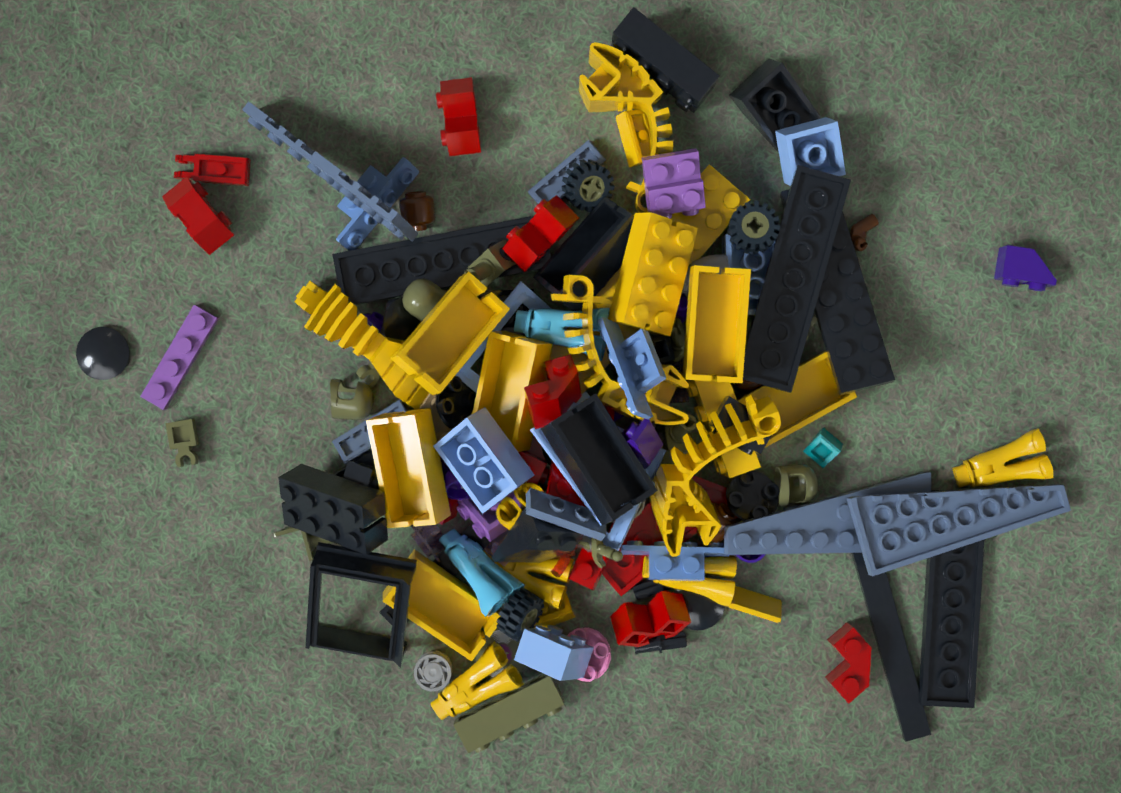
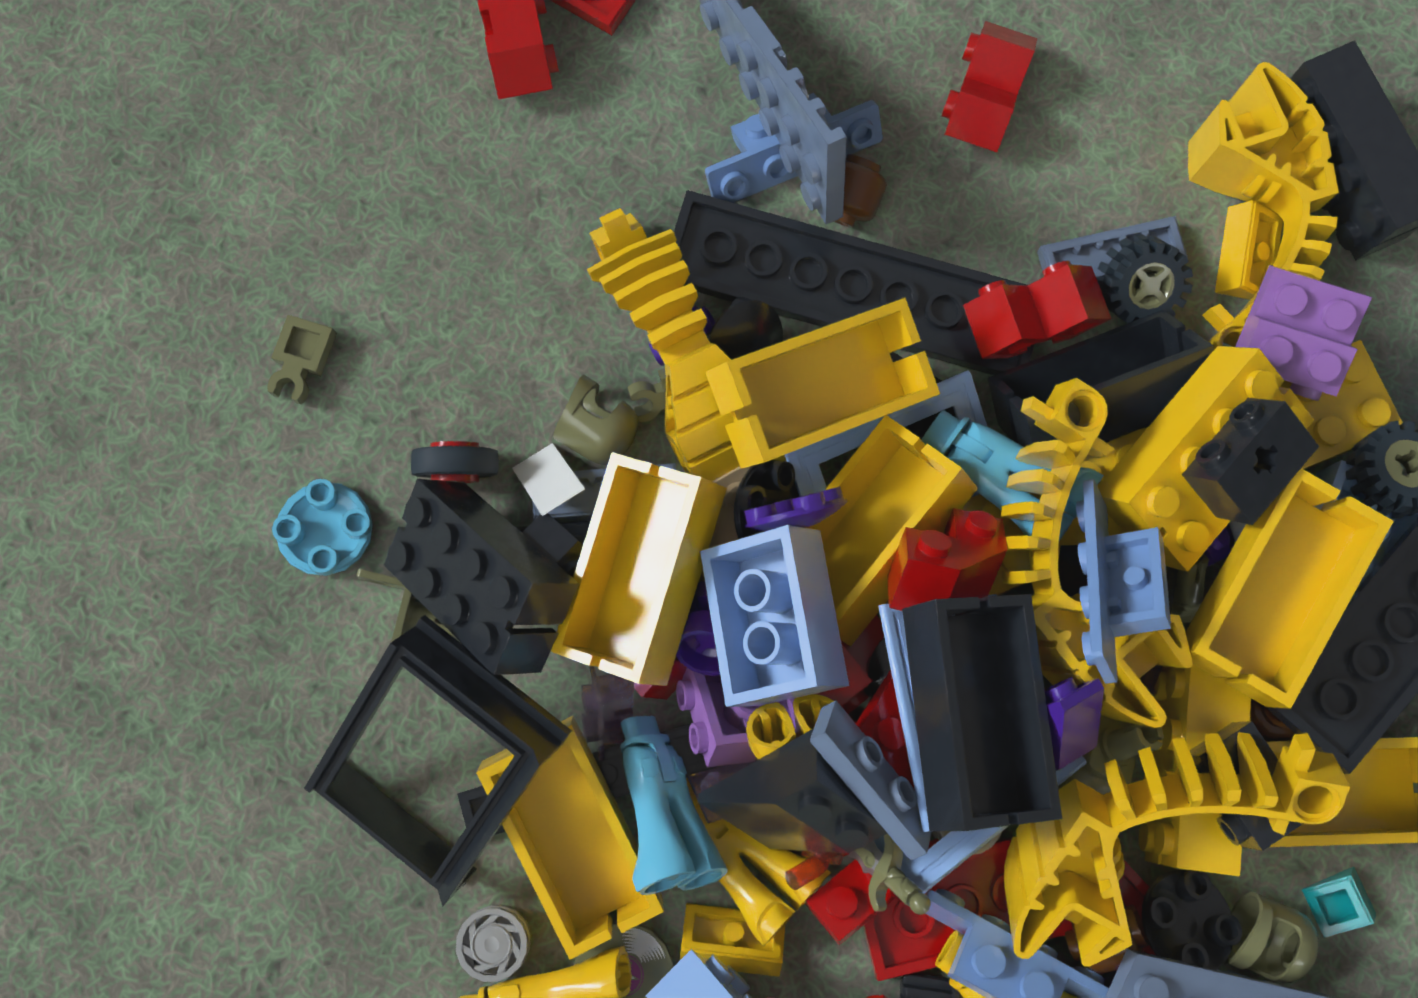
camera: 30 degrees right, 10 degrees down
(102, 353) = (255, 166): black dish -> none
(179, 357) = (366, 230): medium lavender plate -> none
(243, 519) = (323, 528): none -> medium azure dish
(291, 456) = (454, 461): none -> black wheel
(341, 441) = (548, 479): none -> white sticker
(421, 297) = (794, 313): olive helmet -> none
(467, 406) = (796, 511): none -> dark purple dish
(490, 264) = (938, 322): olive bracket -> none
(520, 613) = (694, 919): black wheel -> none
(670, 273) = (1250, 460): none -> black brick

